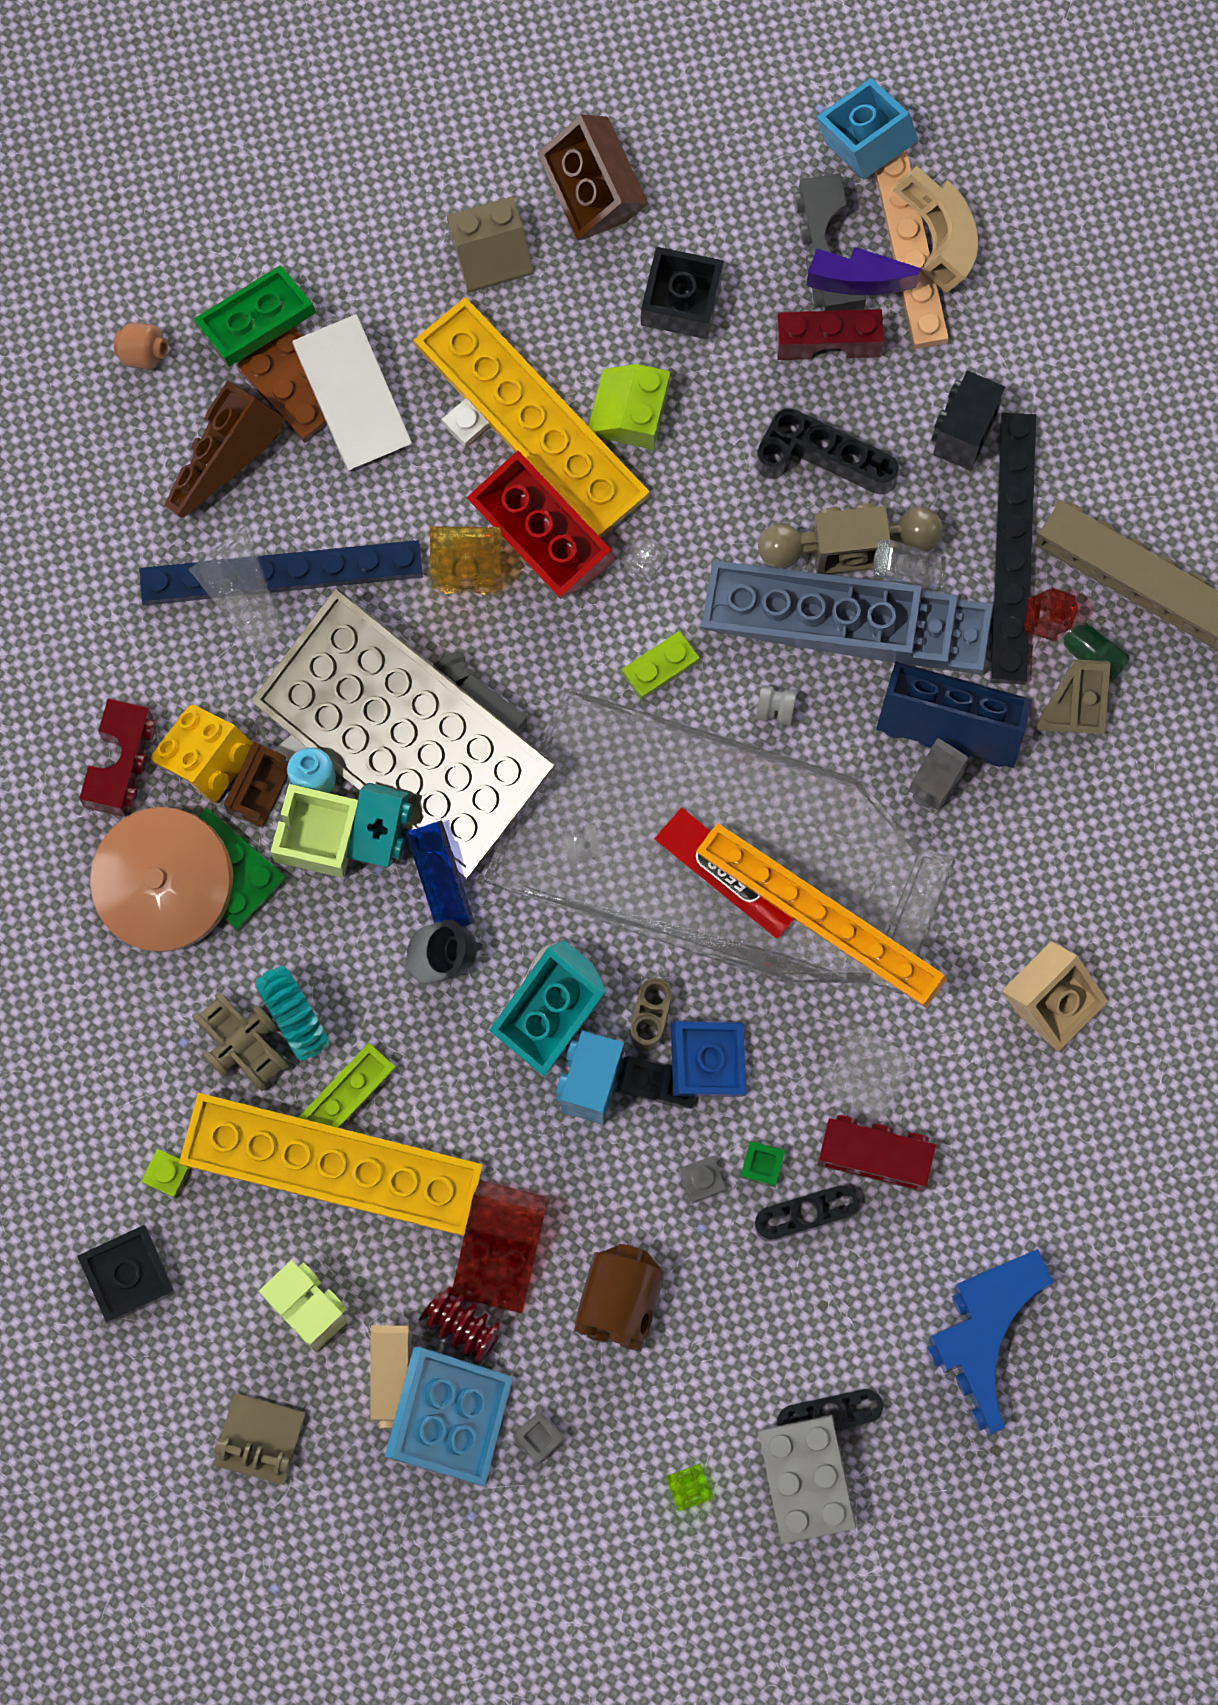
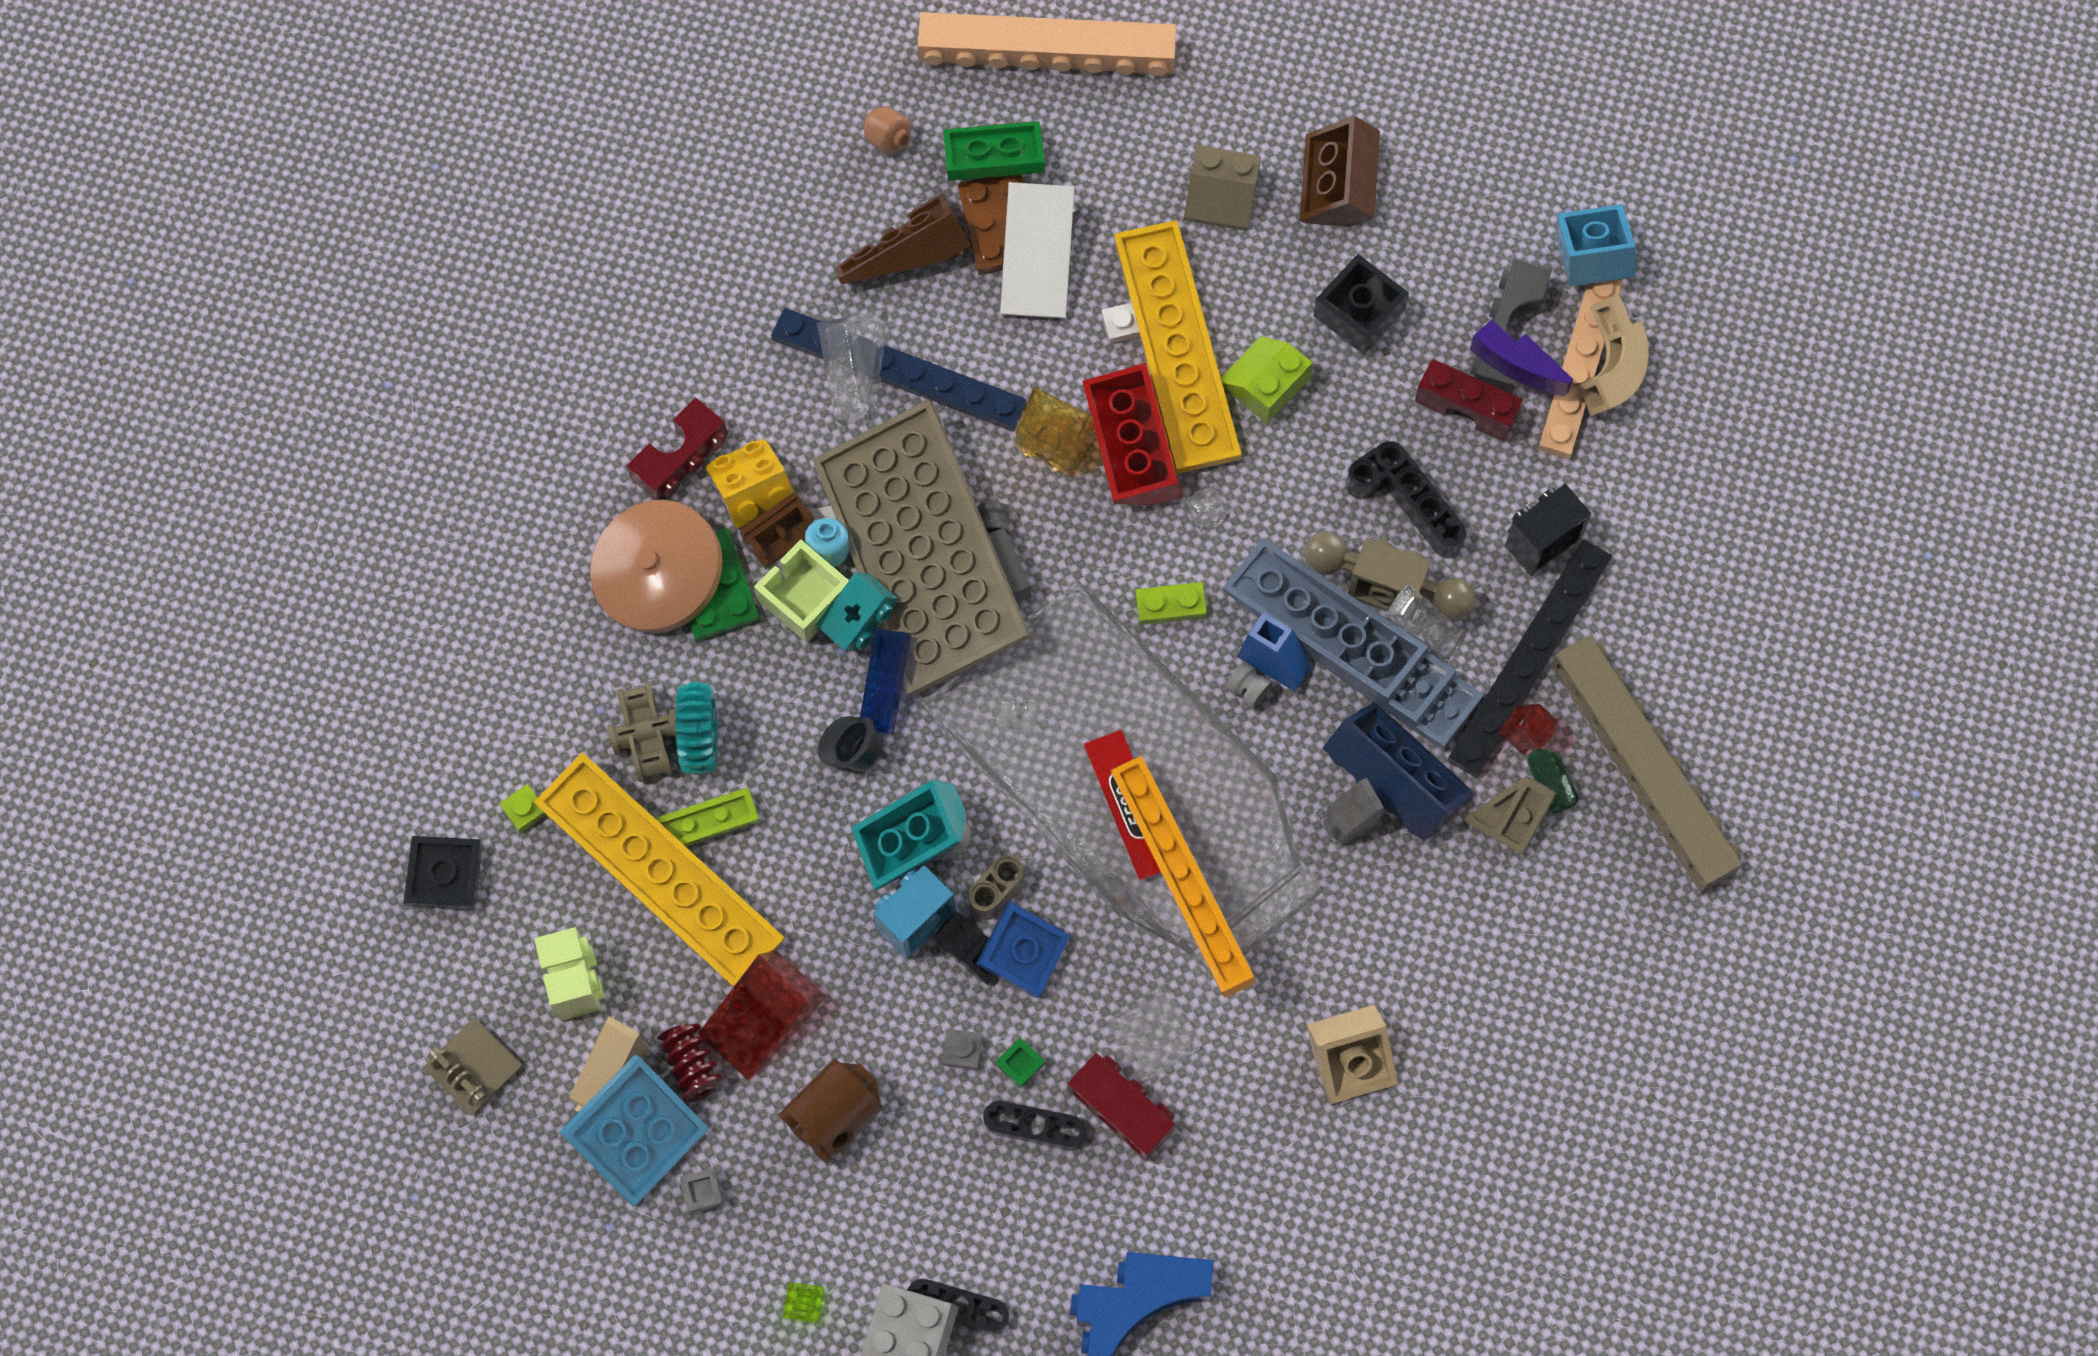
camera: 30 degrees right, 5 degrees down
(245, 185) = (1046, 43): none -> light nougat brick
(783, 662) = (1275, 652): none -> blue slope

